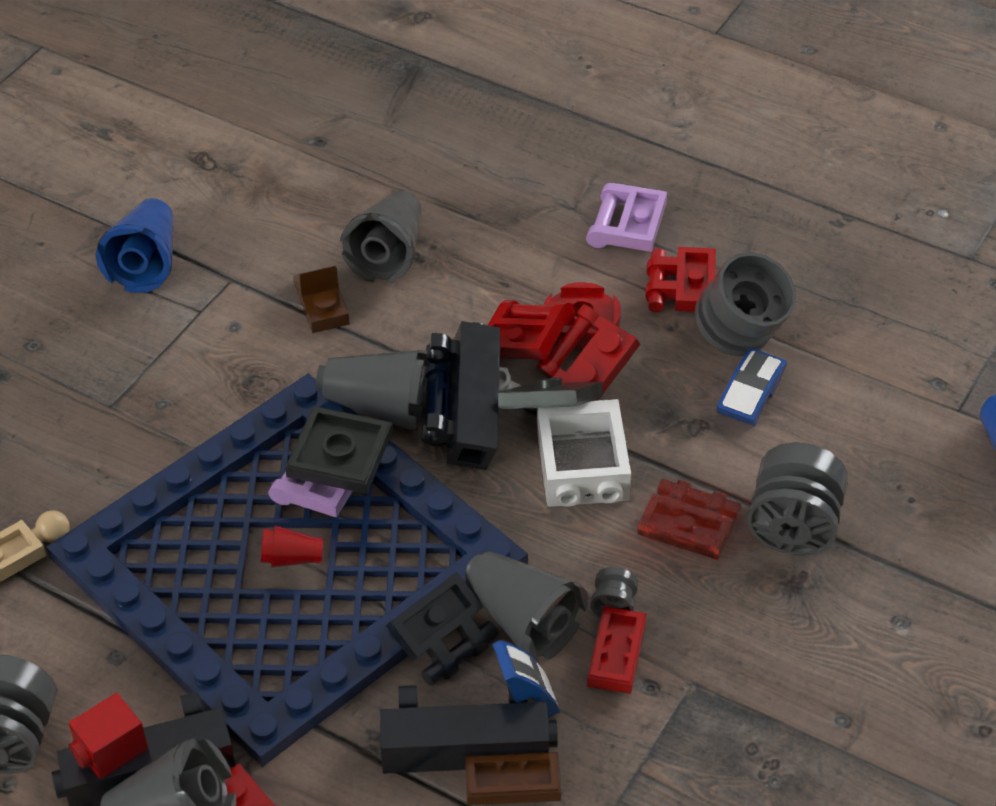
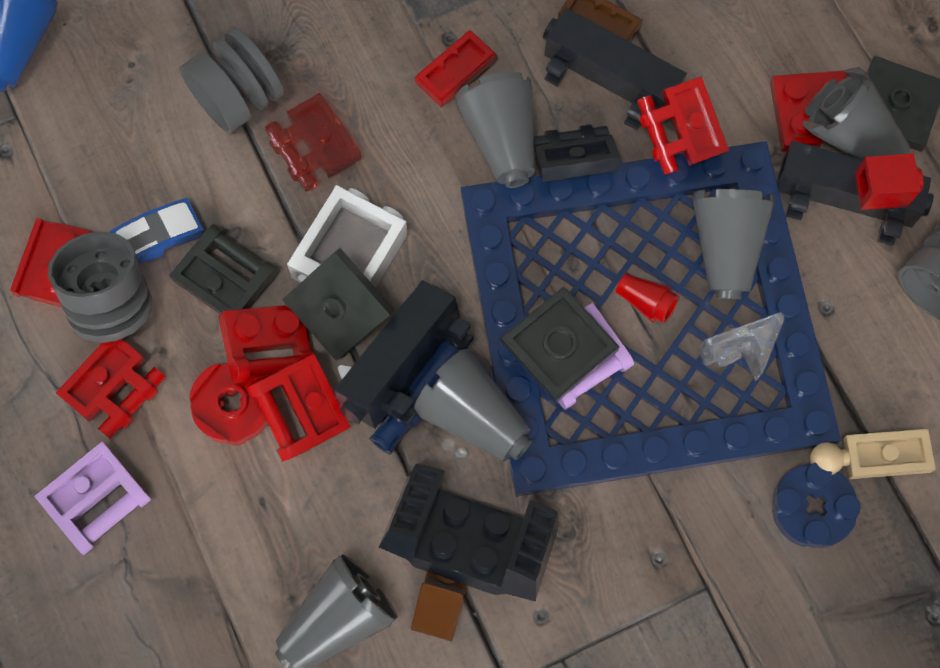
camera: 150 degrees left, 25 degrees up
(43, 476) = (814, 530): none -> dark blue plate
(177, 556) = (752, 340): none -> clear slope
(246, 632) = (732, 237): none -> dark grey cone
(321, 319) = (470, 539): none -> black plate
(343, 696) = (694, 123): none -> red plate
(525, 676) = (550, 60): blue slope -> none
(614, 589) = (424, 108): dark grey wheel -> none
(670, 377) = (216, 283): none -> pearl dark grey plate
(815, 332) = (32, 274): none -> red plate

